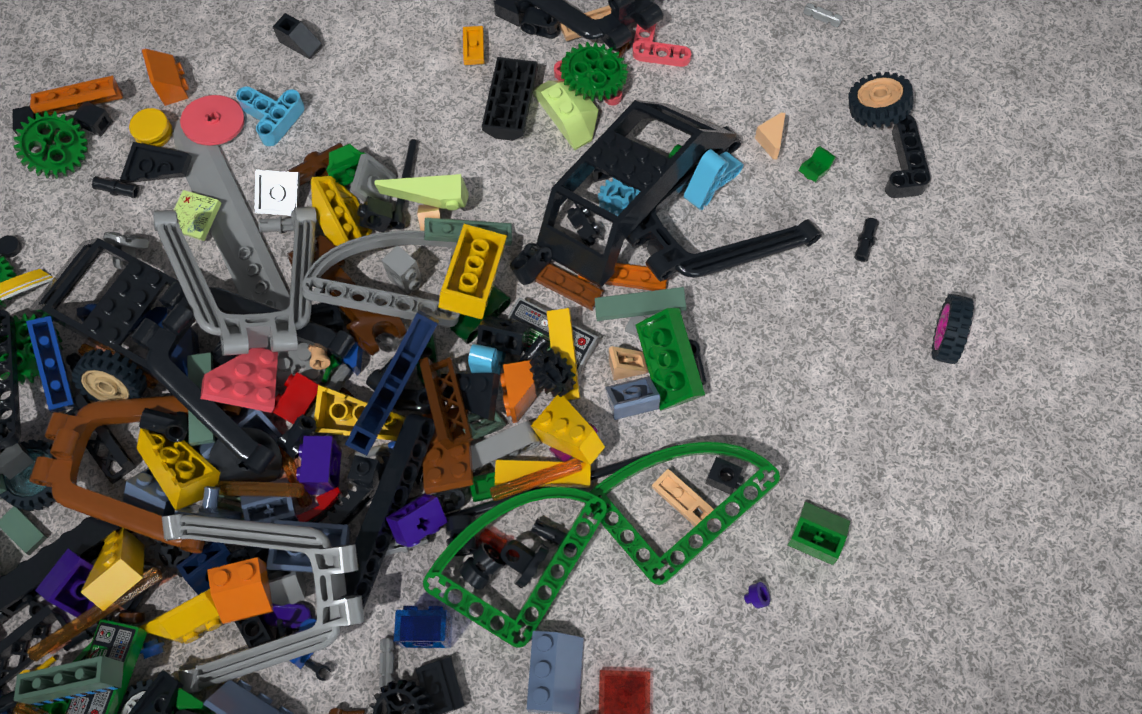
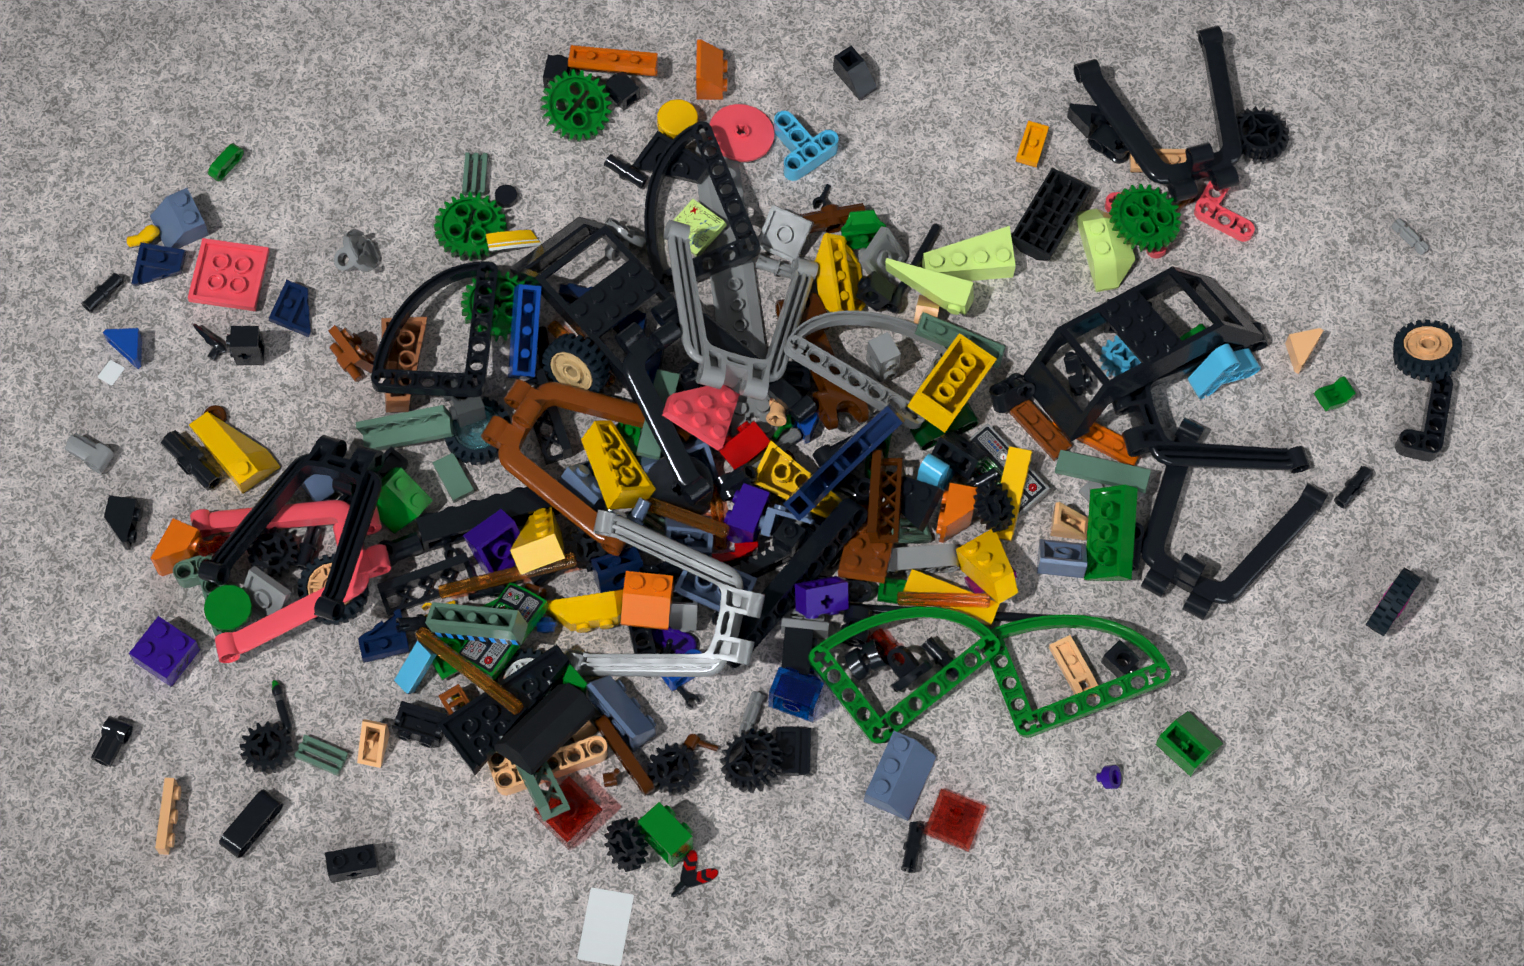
camera: 15 degrees right, 0 degrees up
(144, 178) = (659, 171): none -> black beam
(174, 425) = (619, 426): black piece -> none
(303, 152) = (822, 198): none -> black hand
(344, 457) = (769, 522): none -> sand blue bracket
(409, 583) = (796, 648): none -> black hinge
(411, 555) = (820, 629): none -> light grey tile
(458, 154) = (975, 258): none -> yellowish green wedge
(755, 367) = (1189, 570): none -> black piece

